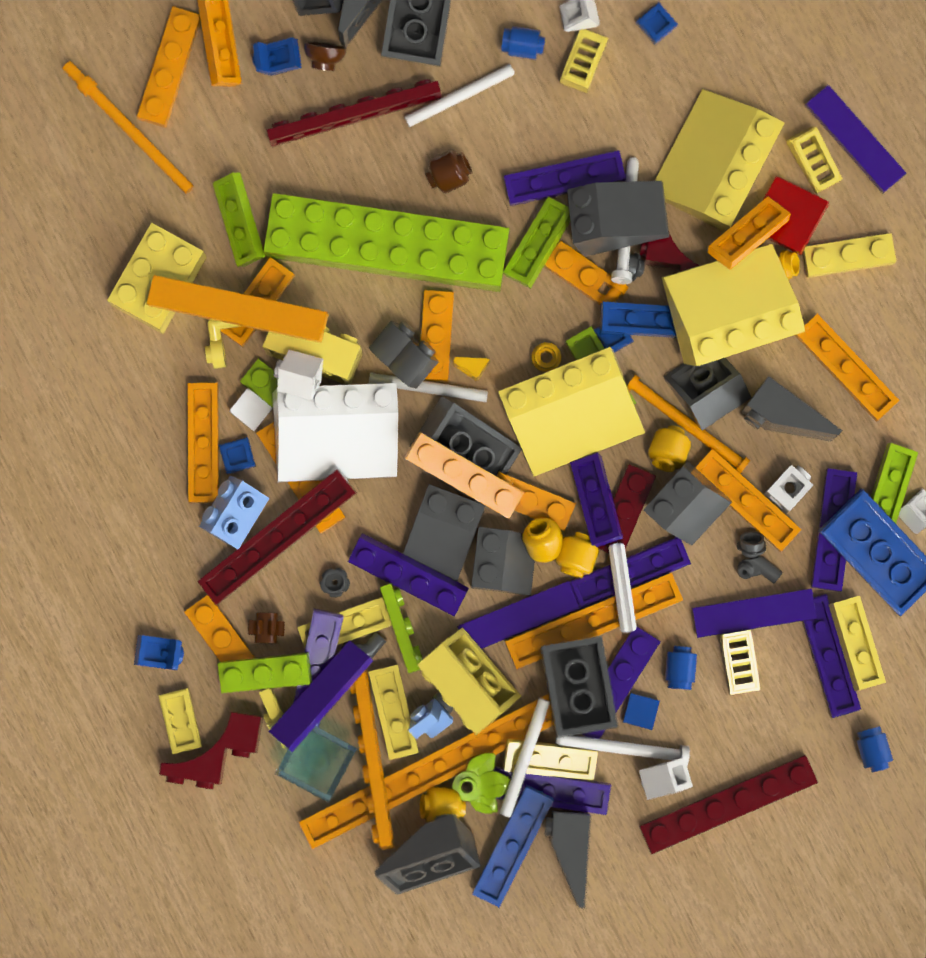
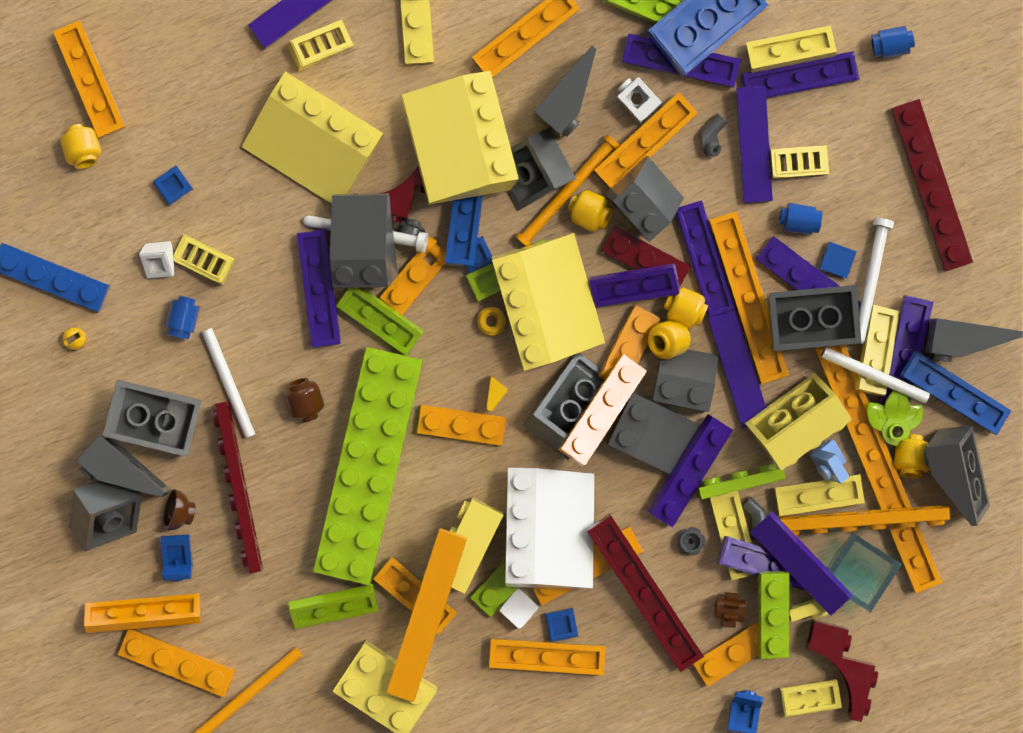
camera: 85 degrees left, 5 degrees up
(215, 351) = (459, 637): light yellow plate -> none
(233, 511) = (617, 632): light blue brick -> none
(299, 374) = (496, 561): white brick -> none
(404, 354) = (479, 457): dark grey brick -> none
(433, 388) = (510, 437): white bar -> none
(622, 587) = (721, 268): white axle -> none
(665, 778) = (904, 243): white brick -> none
(748, 233) = (391, 116): light orange plate -> none
(751, 544) = (688, 140): dark grey plate -> none
(790, 263) = (421, 78): yellow plate -> none
(805, 214) = (373, 75): red tile -> none

